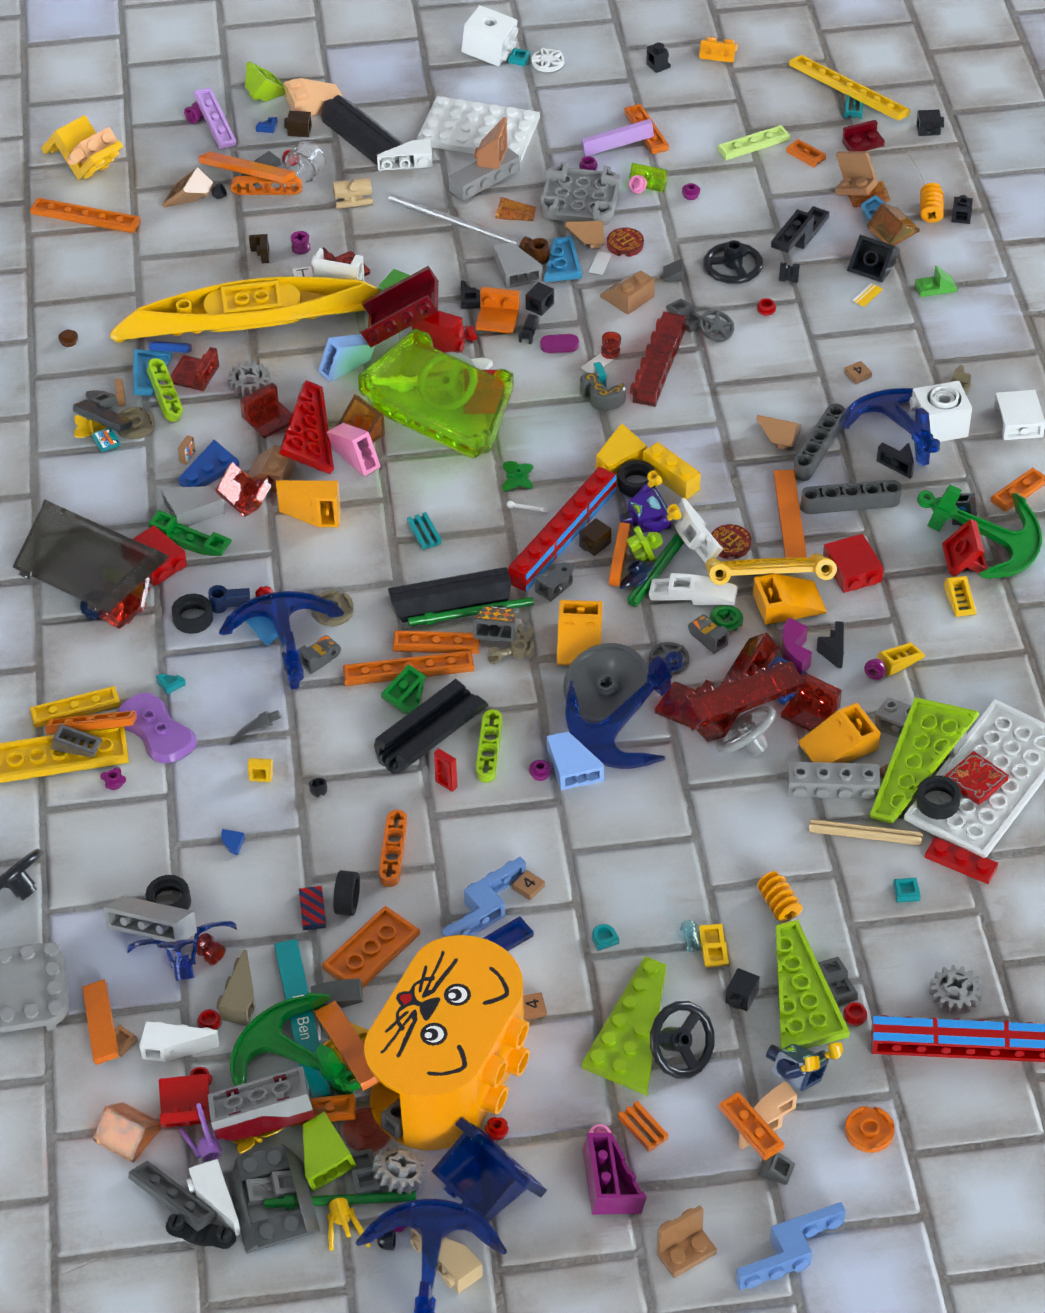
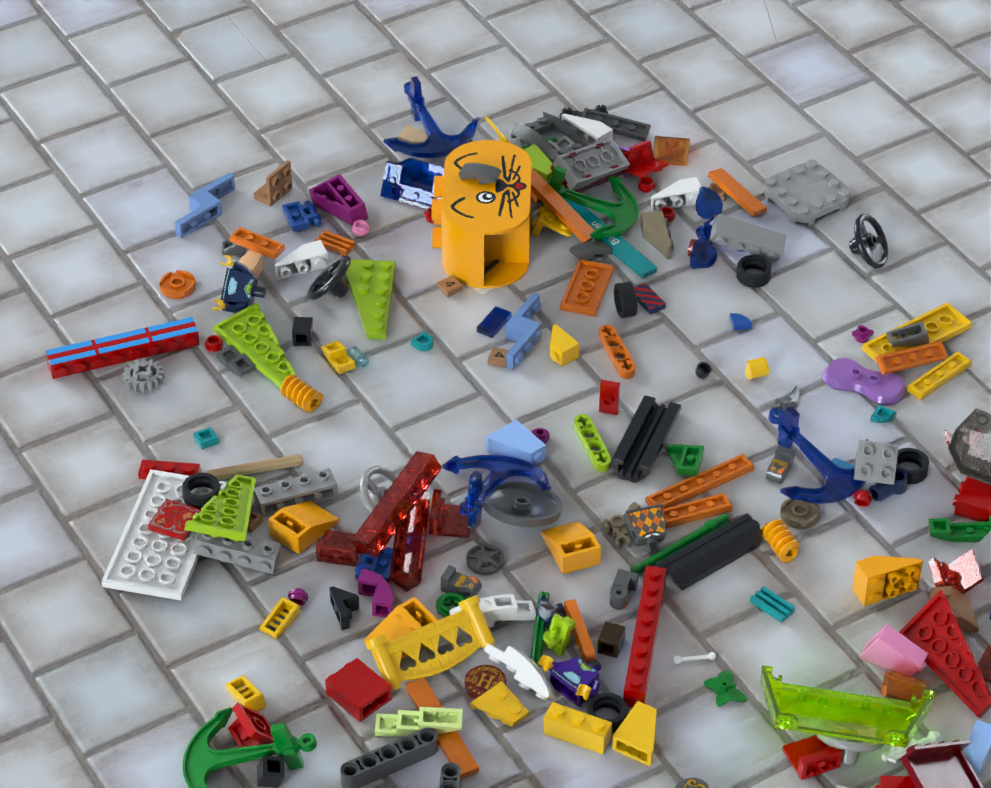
camera: 155 degrees right, 5 degrees down
(237, 593) = (875, 462): none -> light grey plate
(375, 576) = (781, 540): none -> light orange piece
(447, 1022) = (483, 172): none -> dark grey slope
(453, 866) = (563, 346): none -> yellow slope
(676, 1184) = (298, 219): none -> blue plate
(695, 1101) = (302, 260): none -> white slope
(729, 513) = (501, 705): none -> yellow wing
(804, 511) = (409, 722): none -> yellowish green slope

